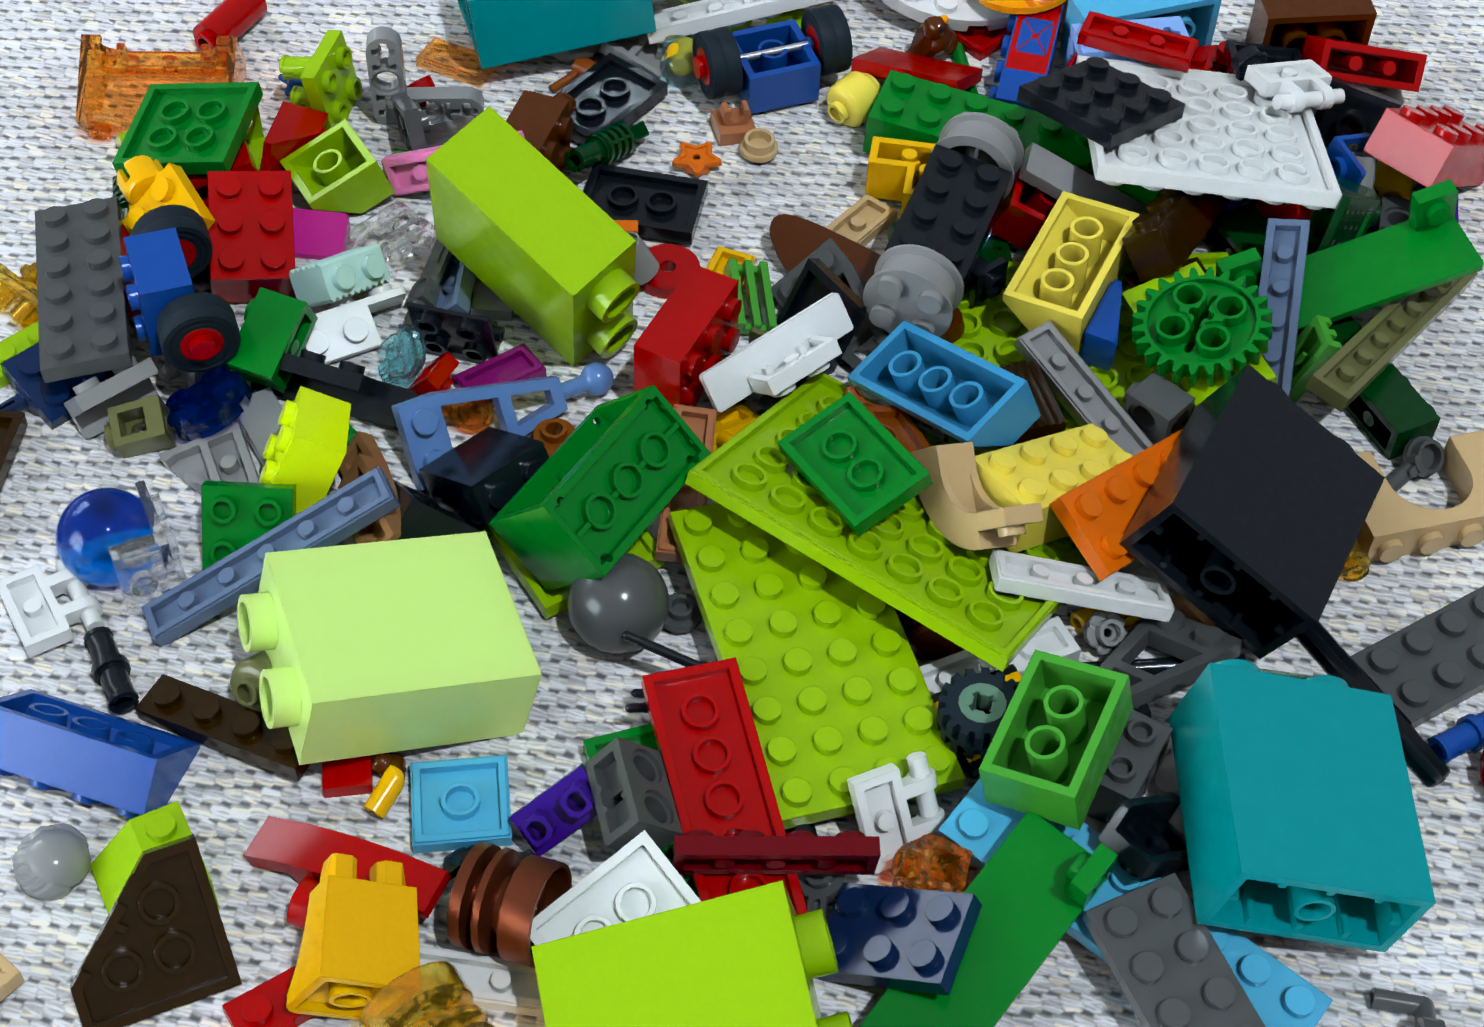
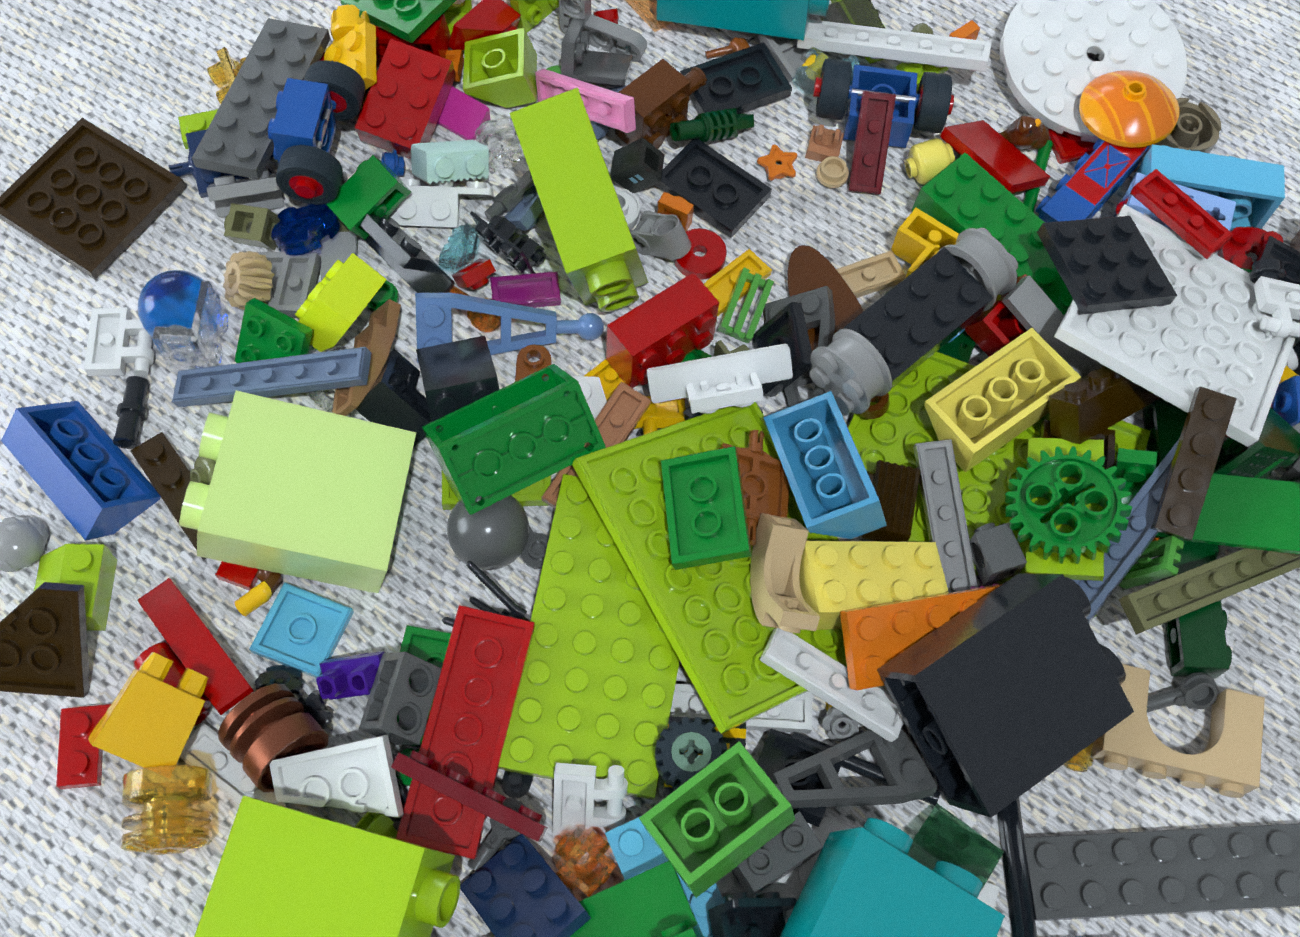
camera: 25 degrees right, 15 degrees up
(176, 474) = (247, 277): none -> tan gear
(787, 98) = (871, 142): none -> dark red tile
(986, 280) = (931, 374): black bracket -> none
(1102, 332) = (991, 466): blue slope -> none
(1297, 239) = (1193, 463): none -> dark brown plate

